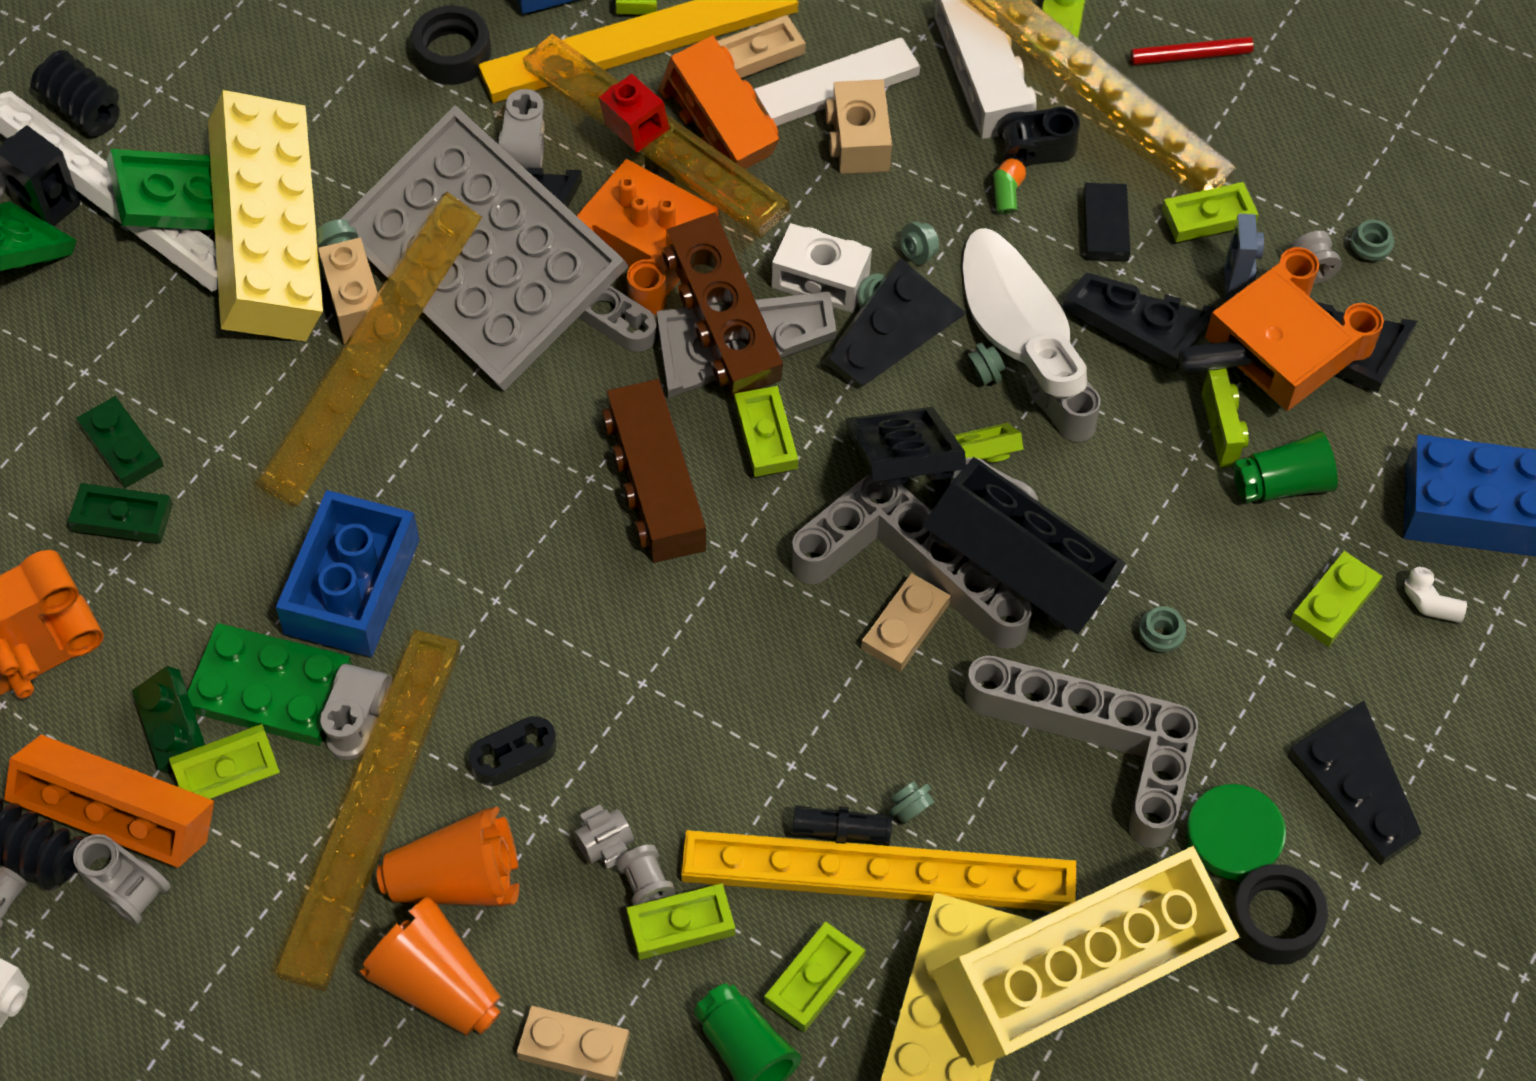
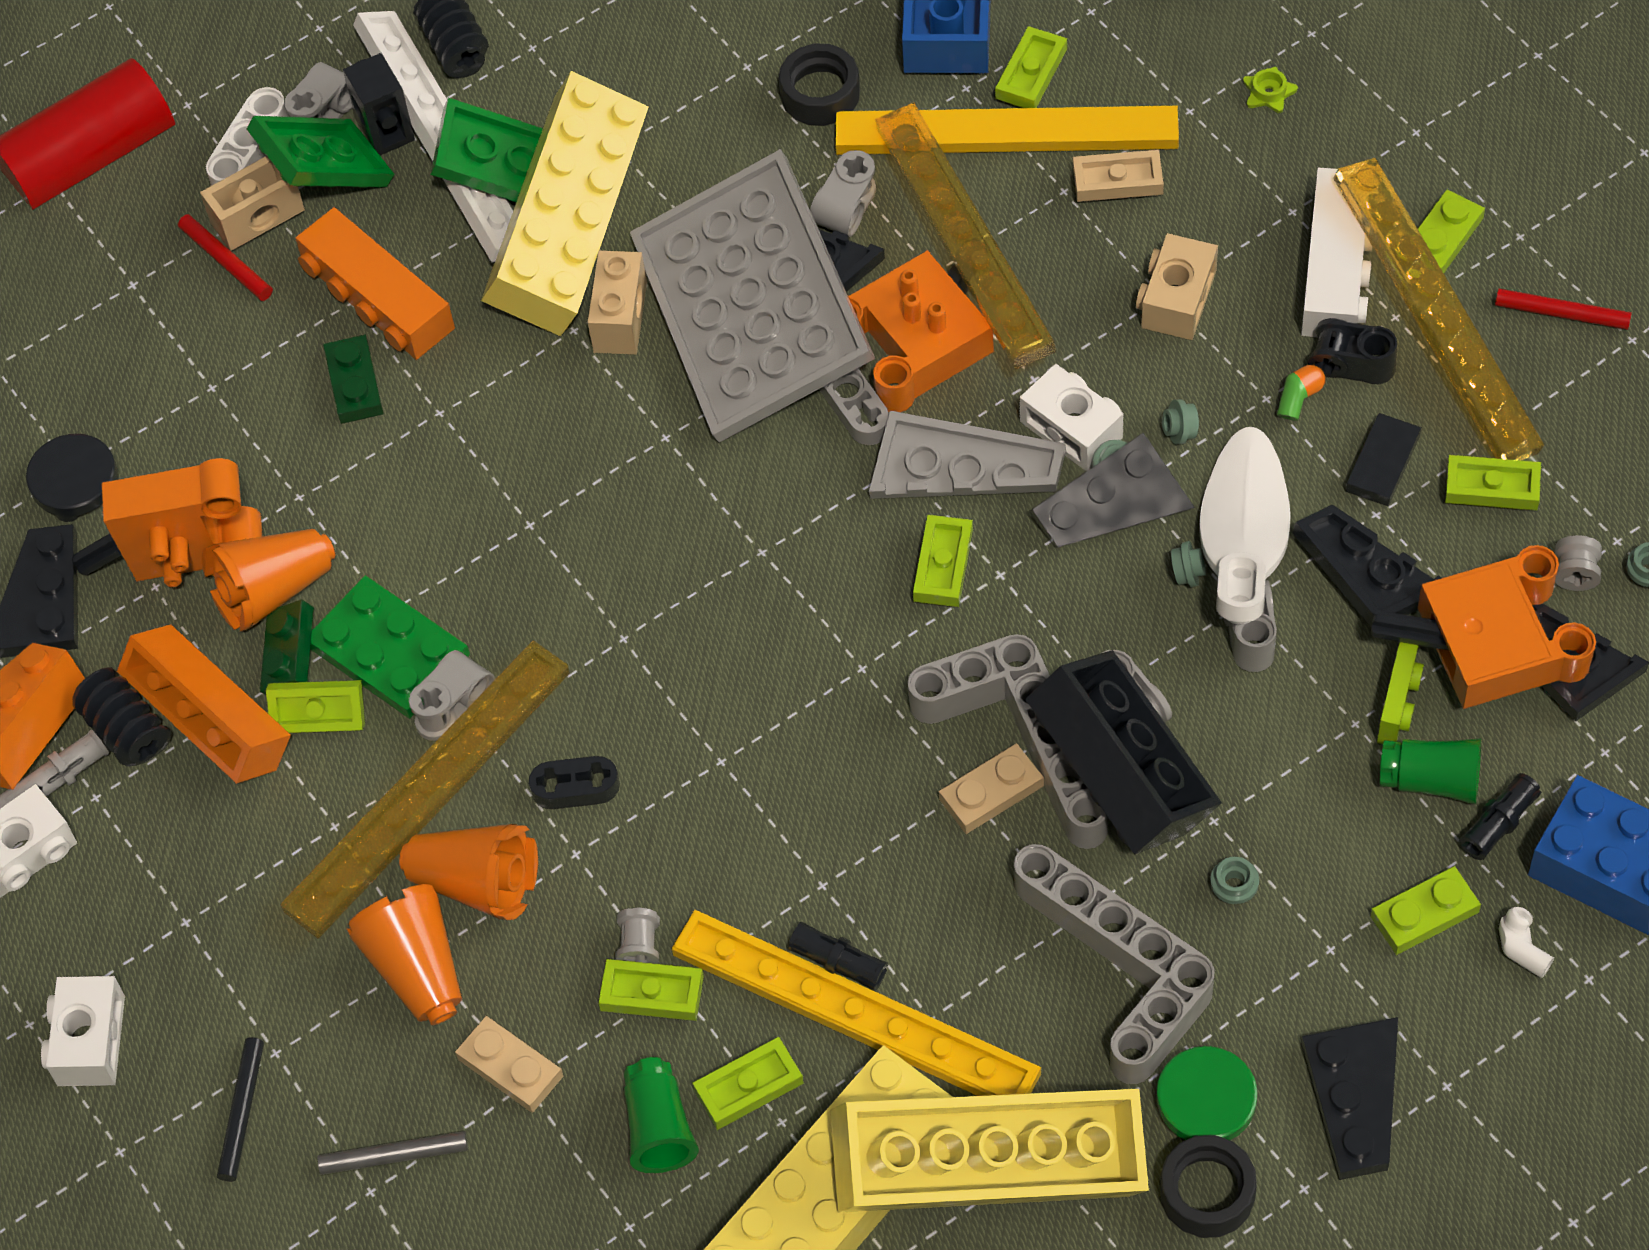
camera: 30 degrees right, 0 degrees up
(103, 345) = (374, 283): none -> orange brick
(114, 654) = (264, 572): none -> orange cone
(120, 513) = (324, 445): dark green plate -> none
(125, 883) = (188, 779): light grey piece -> none
(335, 232) = (622, 240): sand green plate -> none
(348, 573) = (495, 568): blue brick -> none
(369, 350) = (605, 362): clear yellow plate -> none
(603, 835) = (615, 887): light grey gear -> none
(634, 112) = (945, 208): red brick -> none
(655, 471) = (819, 564): reddish brown brick -> none
(707, 244) = (952, 357): reddish brown brick -> none
(719, 102) = (1046, 224): orange wedge -> none
(808, 90) = (1139, 234): white tile -> none
(905, 445) = (1053, 617): black plate -> none
(911, 801) = (911, 957): sand green plate -> none
(991, 443) = (1152, 643): lime plate -> none
(1244, 249) = (1494, 533): sand blue plate -> none
(1360, 494) = (1500, 816): none -> black pin

